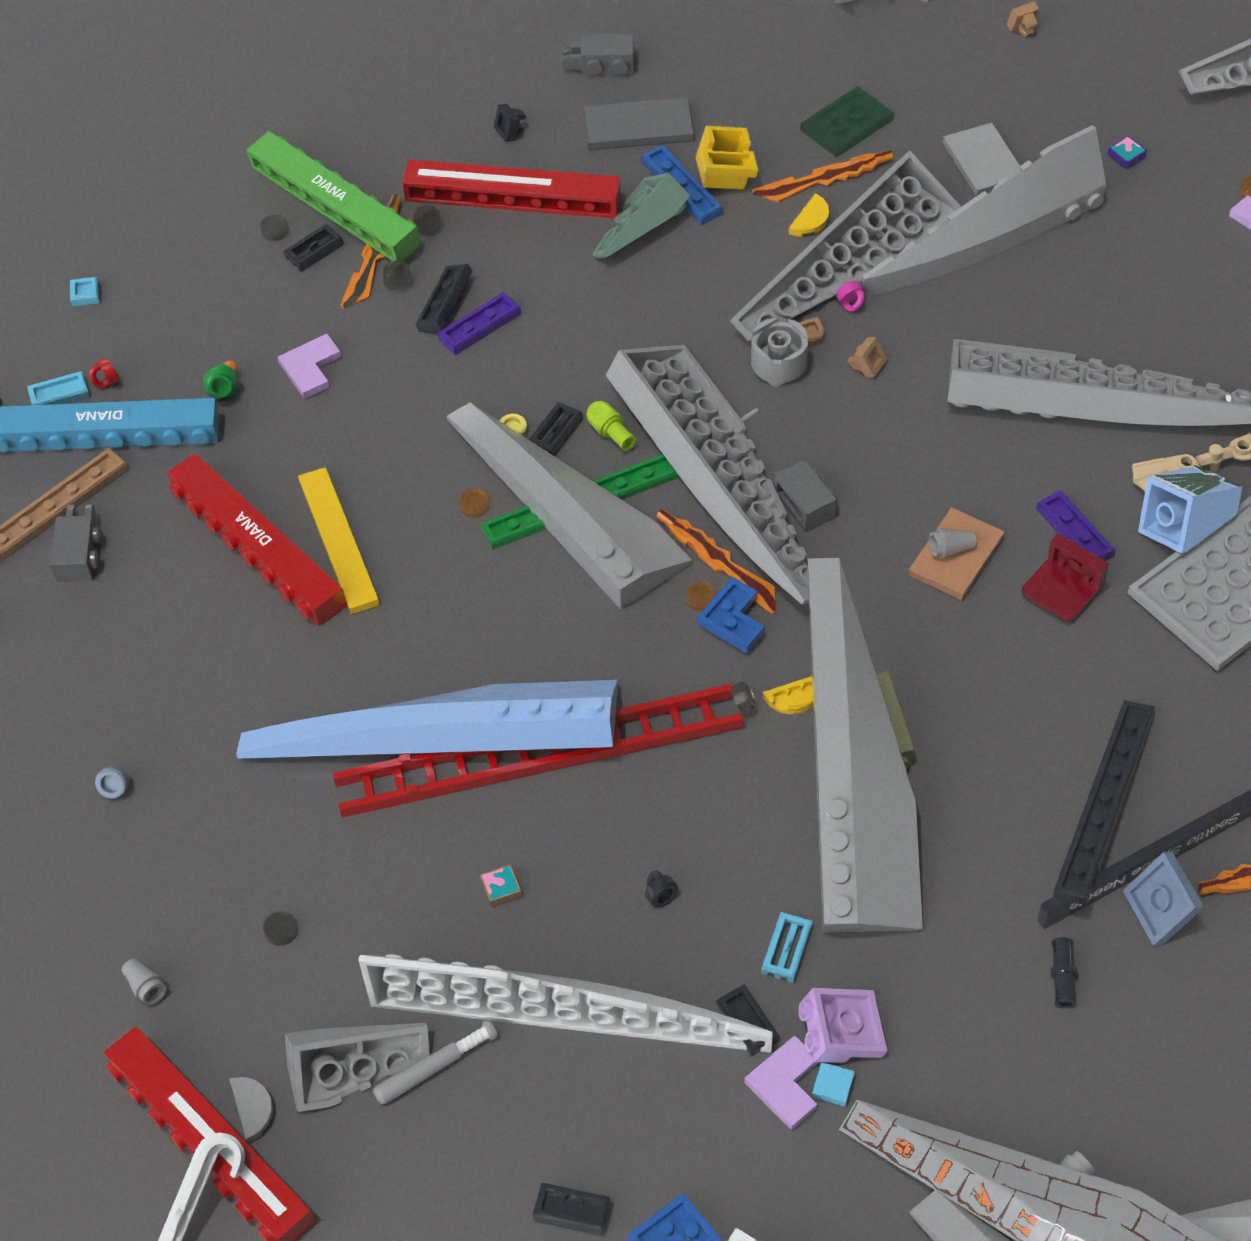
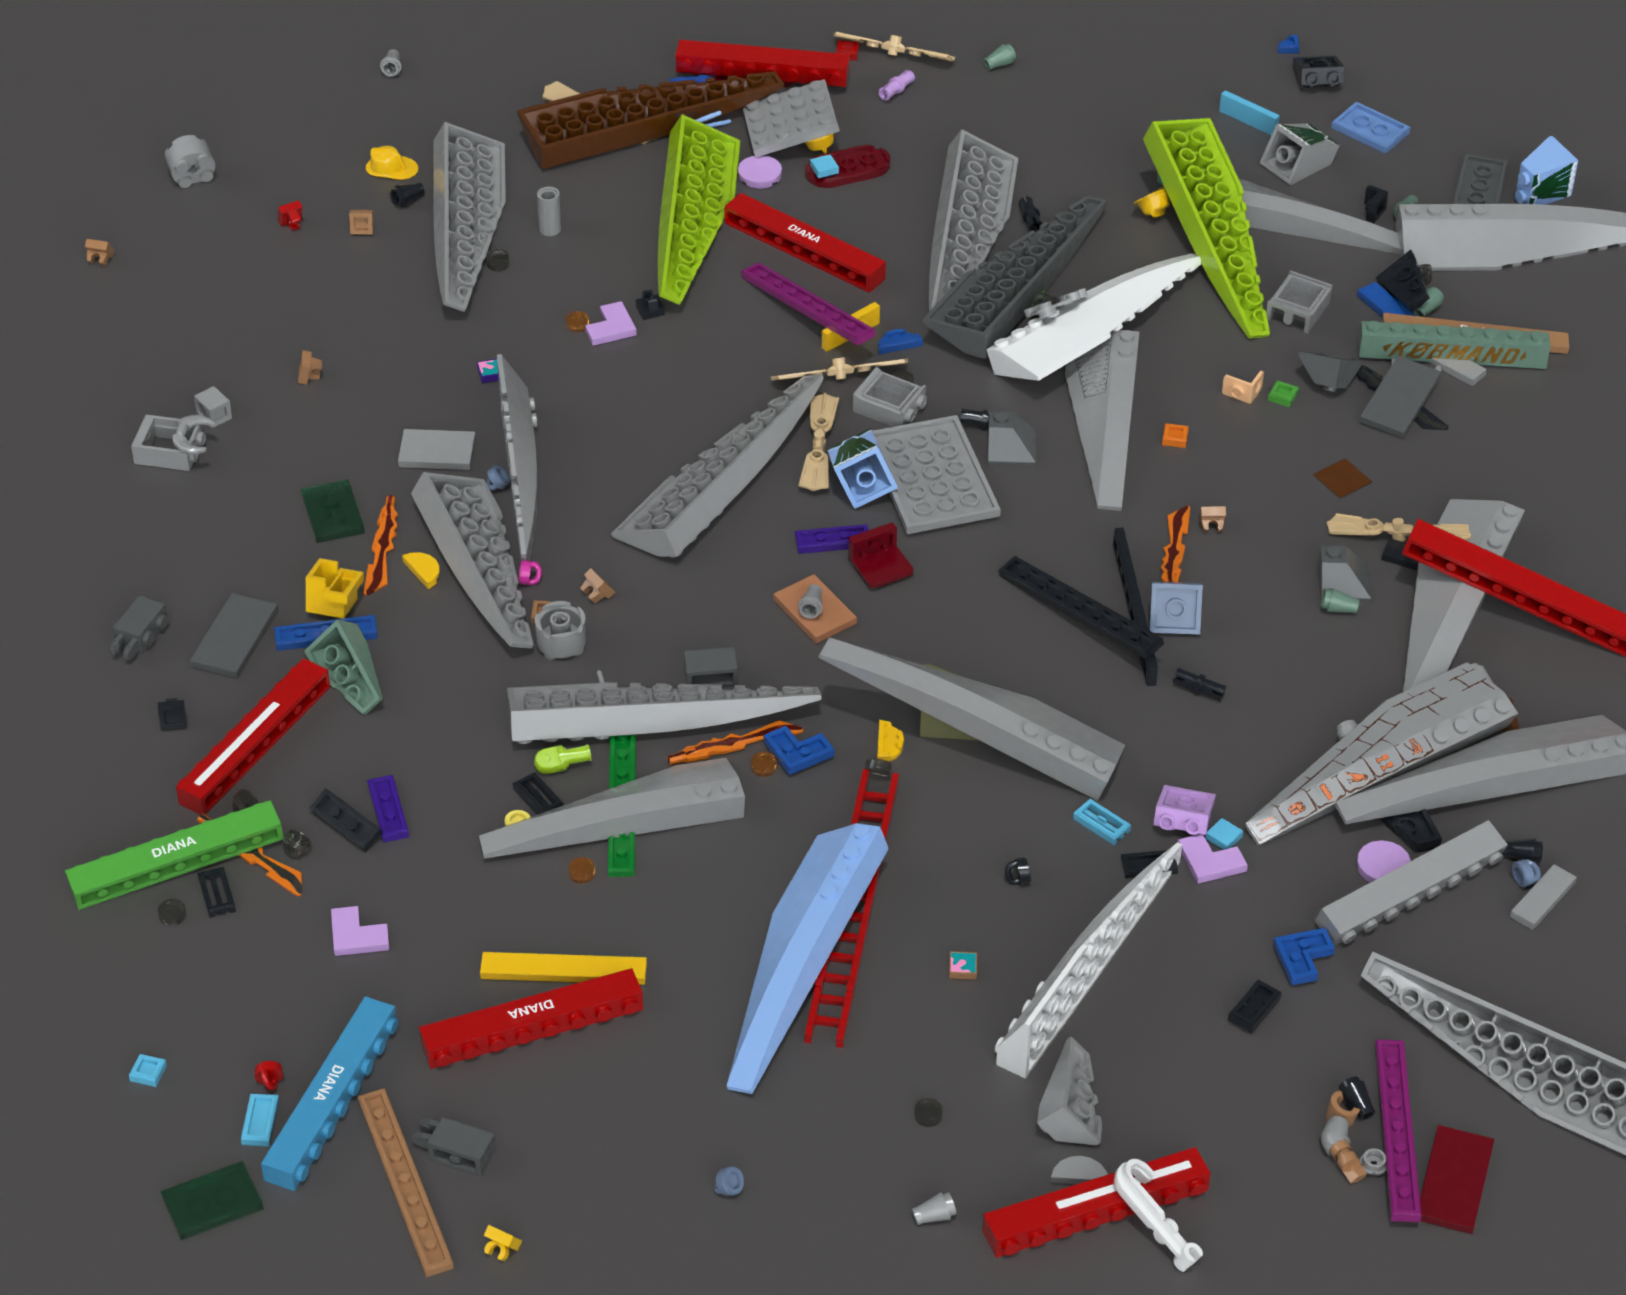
camera: 70 degrees left, 10 degrees down
(221, 380) = (338, 993): green animal -> none
(423, 1069) = (1099, 1055): light grey piece -> none

